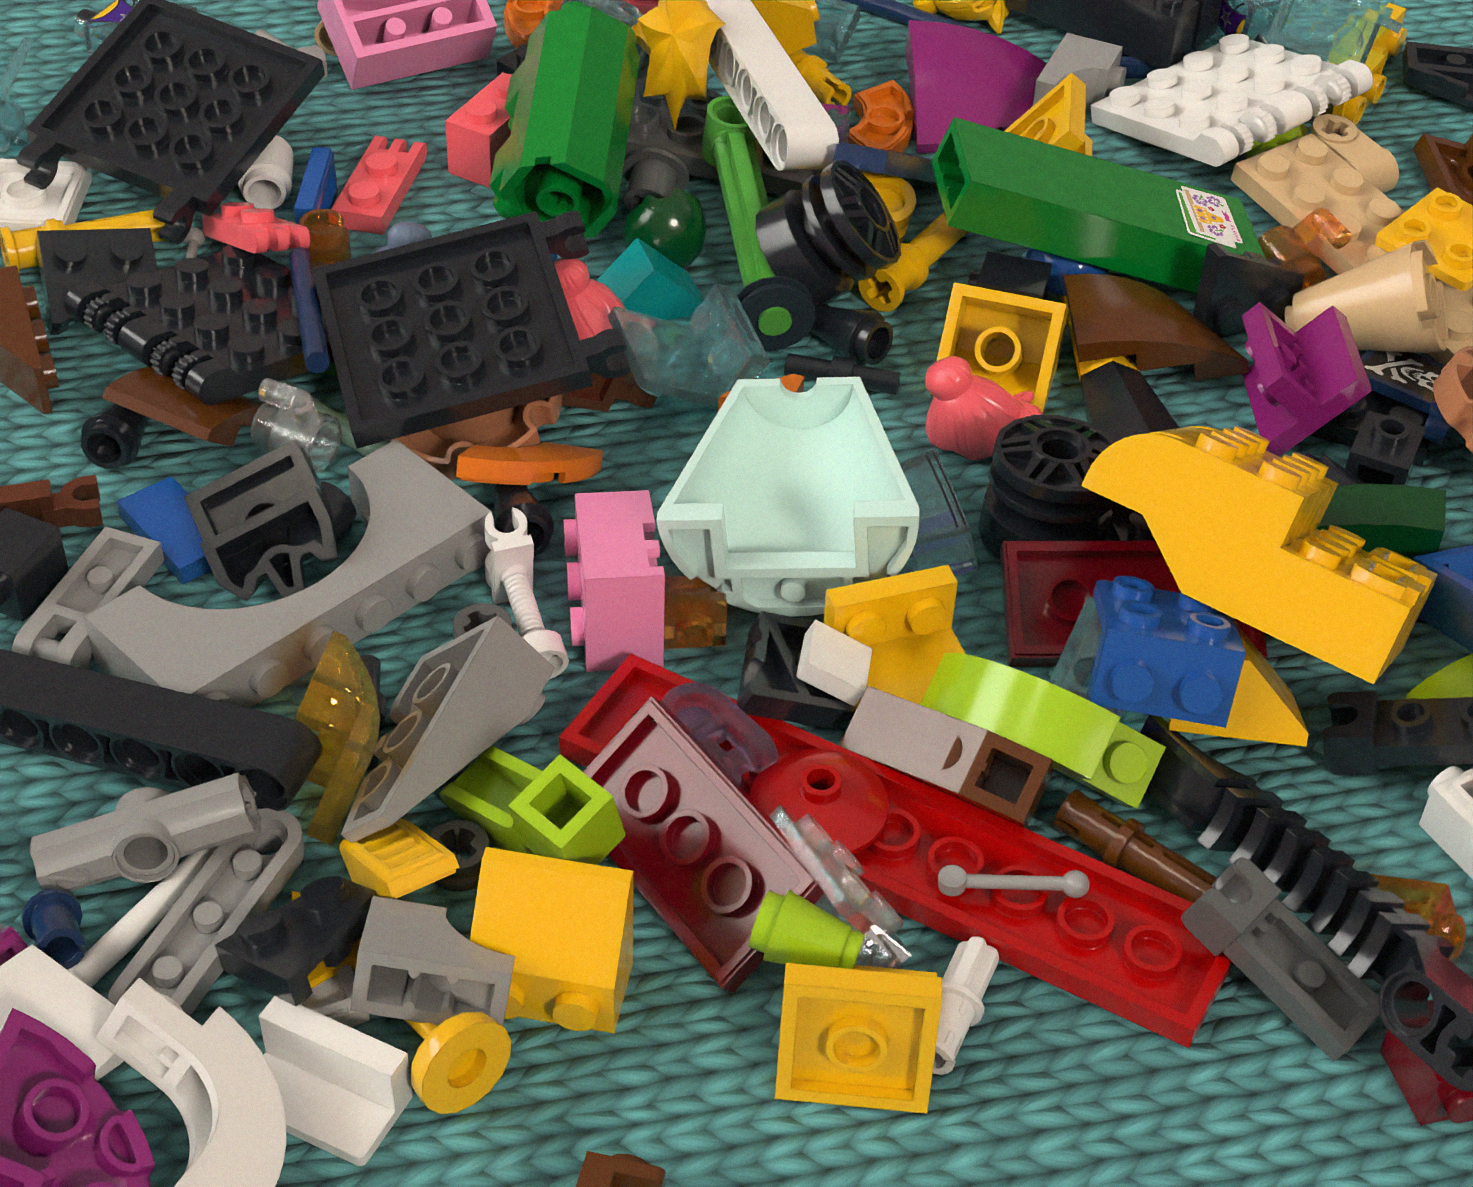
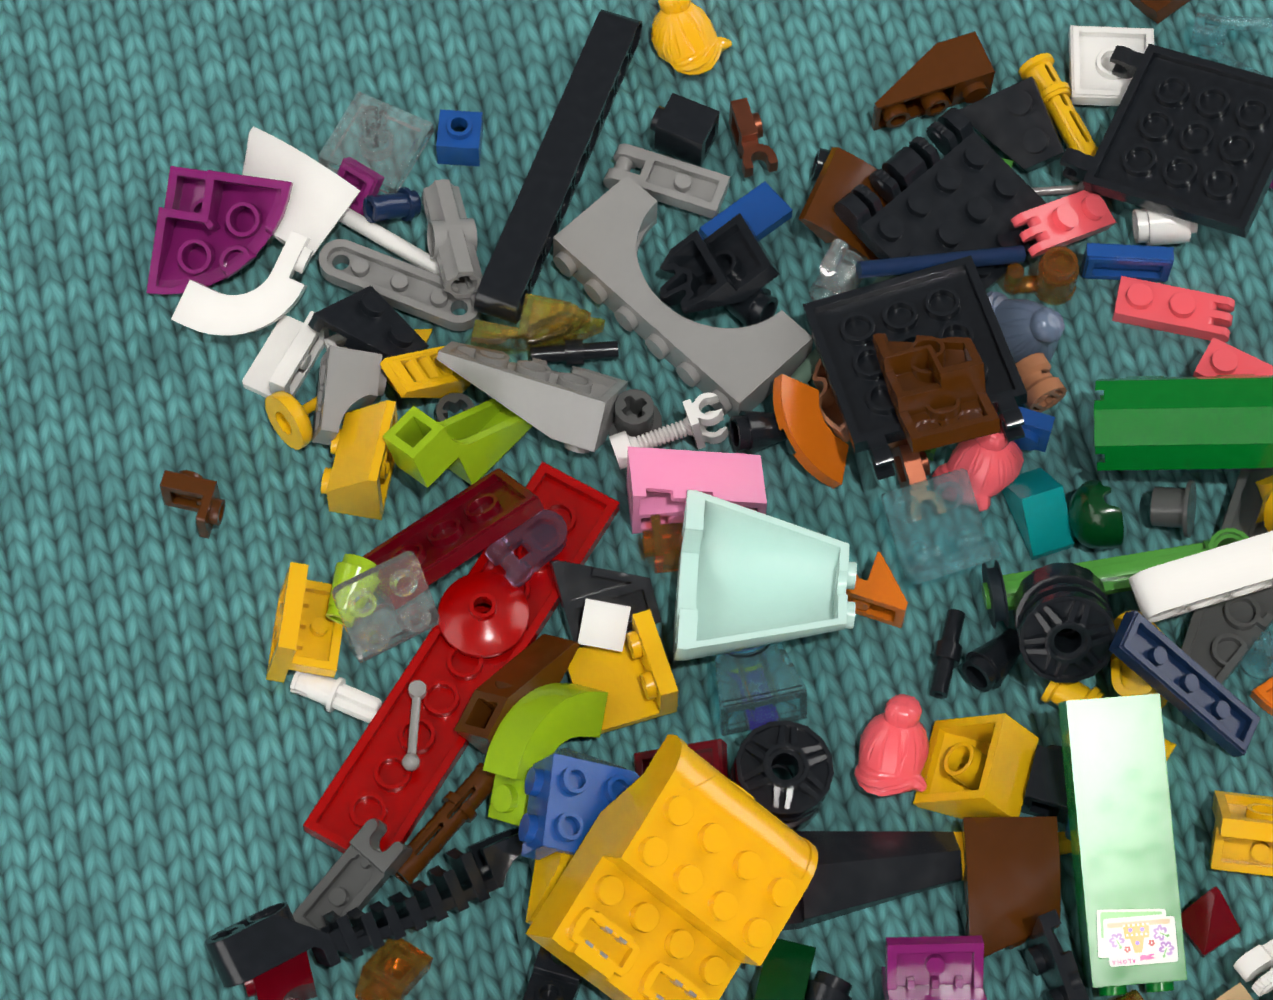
camera: 90 degrees right, 20 degrees up
(522, 286) = (937, 390): none -> reddish brown slope

